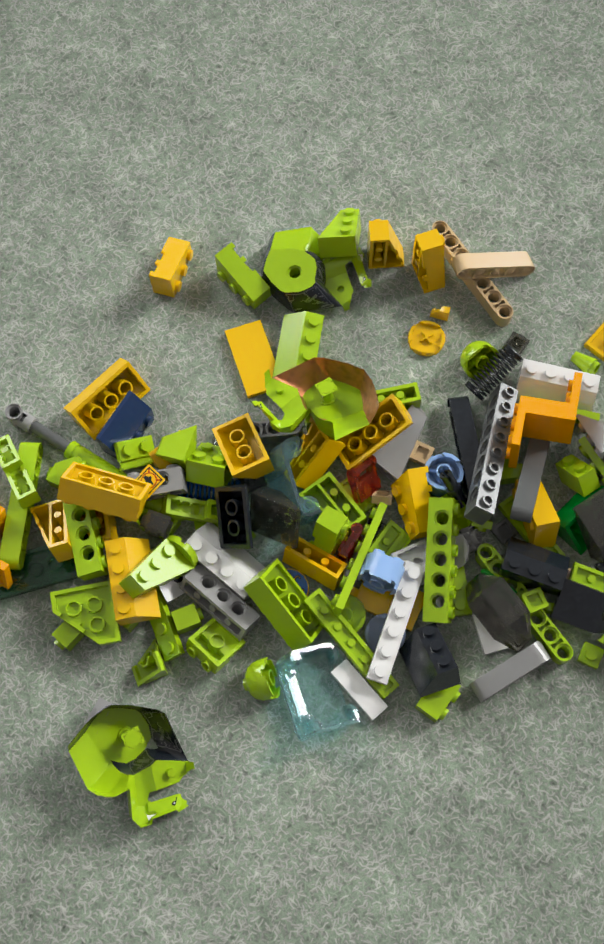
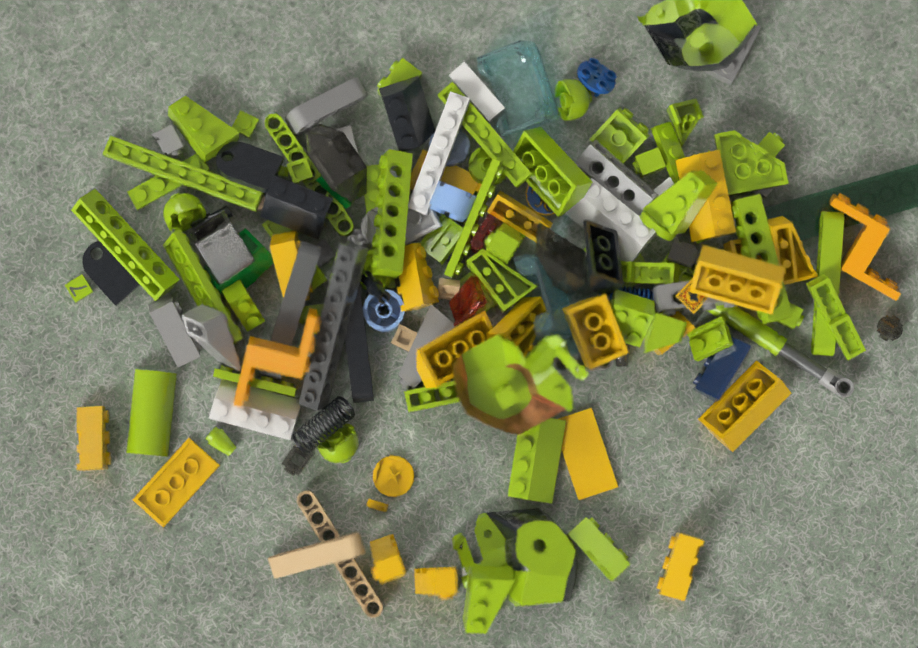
camera: 175 degrees right, 15 degrees up
(238, 703) = (596, 77): none -> blue plate

